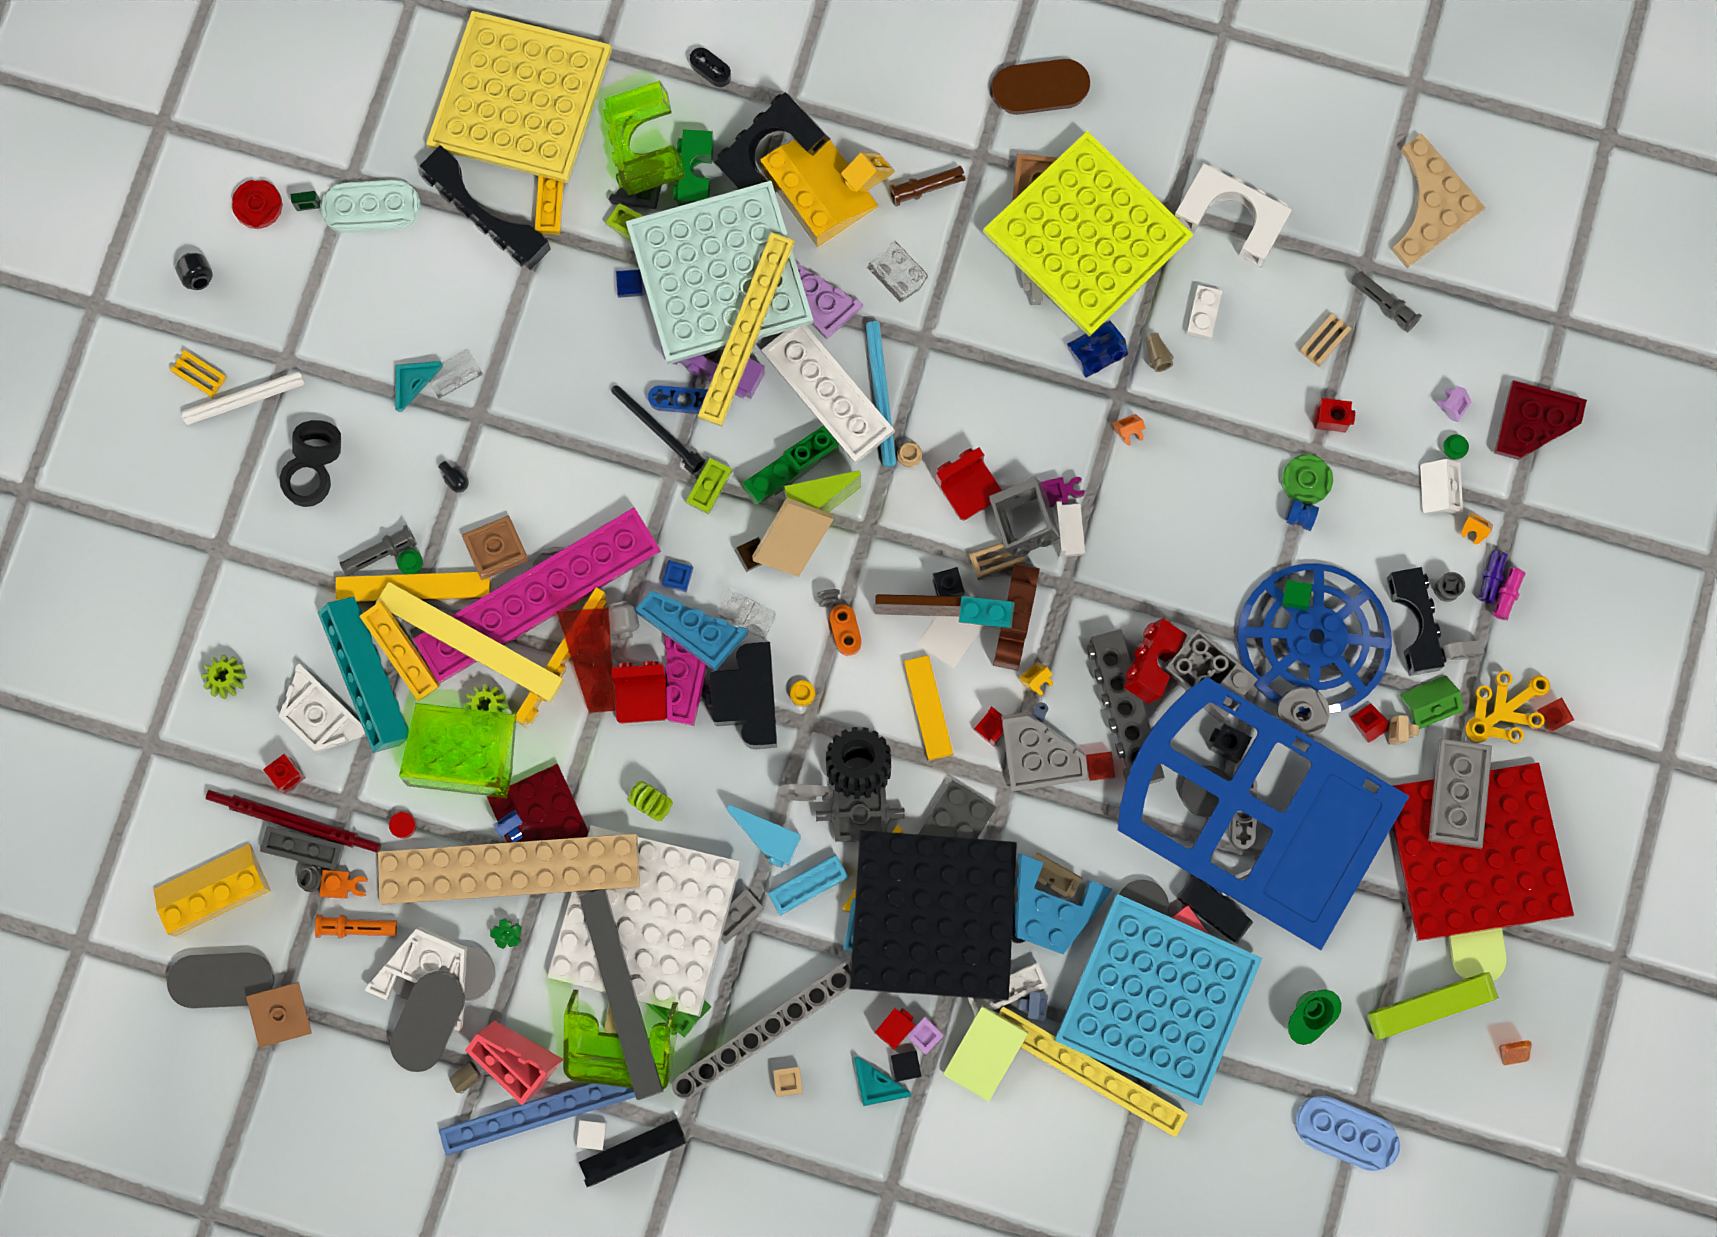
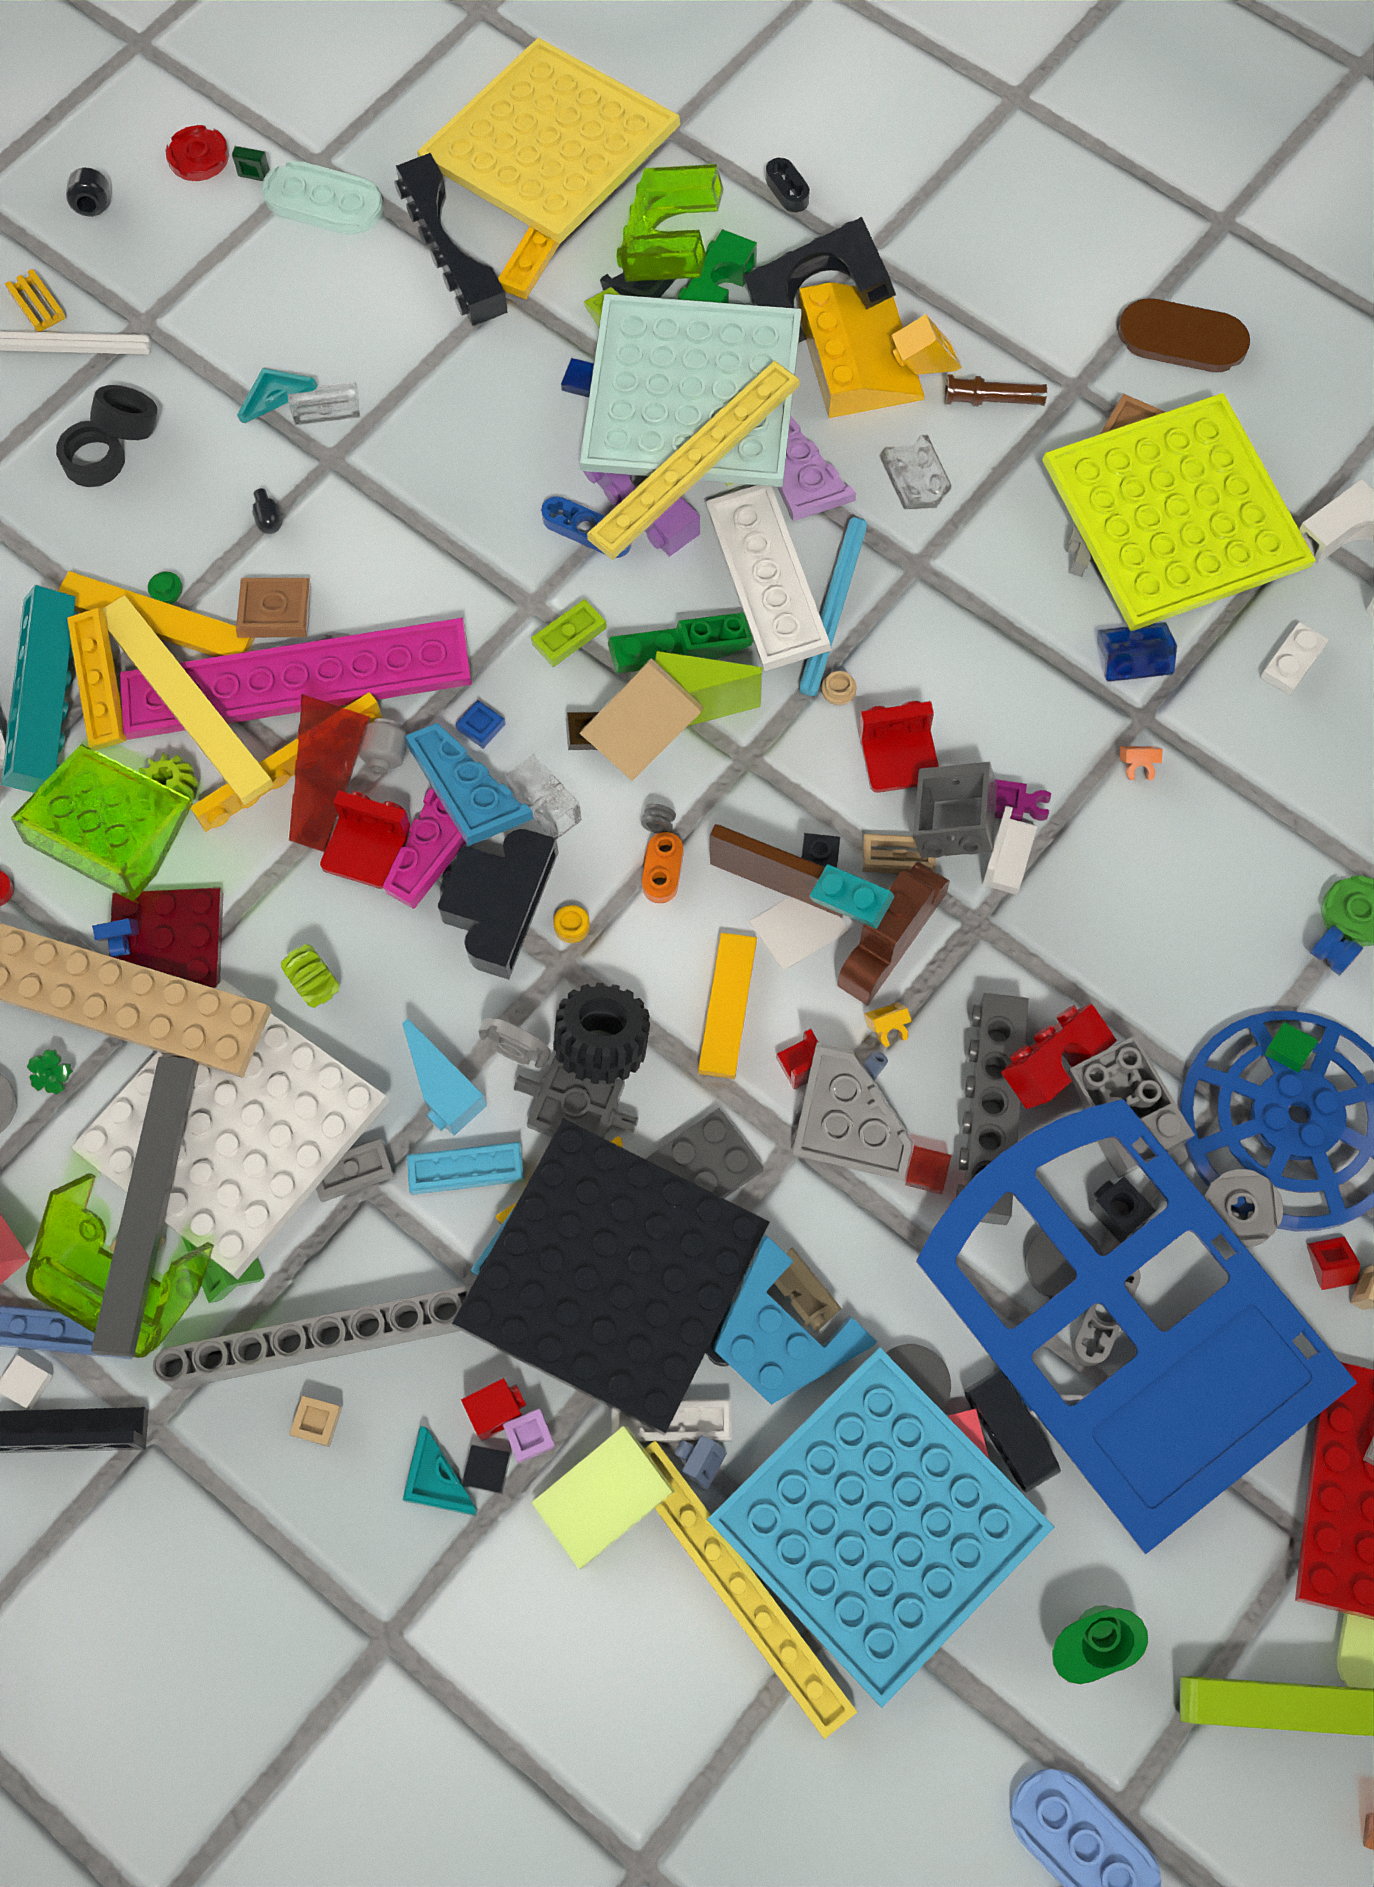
camera: 25 degrees right, 10 degrees down
(388, 546) = (149, 559): dark grey pin -> none
(692, 460) = (561, 596): black piece -> none
(1158, 353) = (1214, 685): dark tan cone -> none

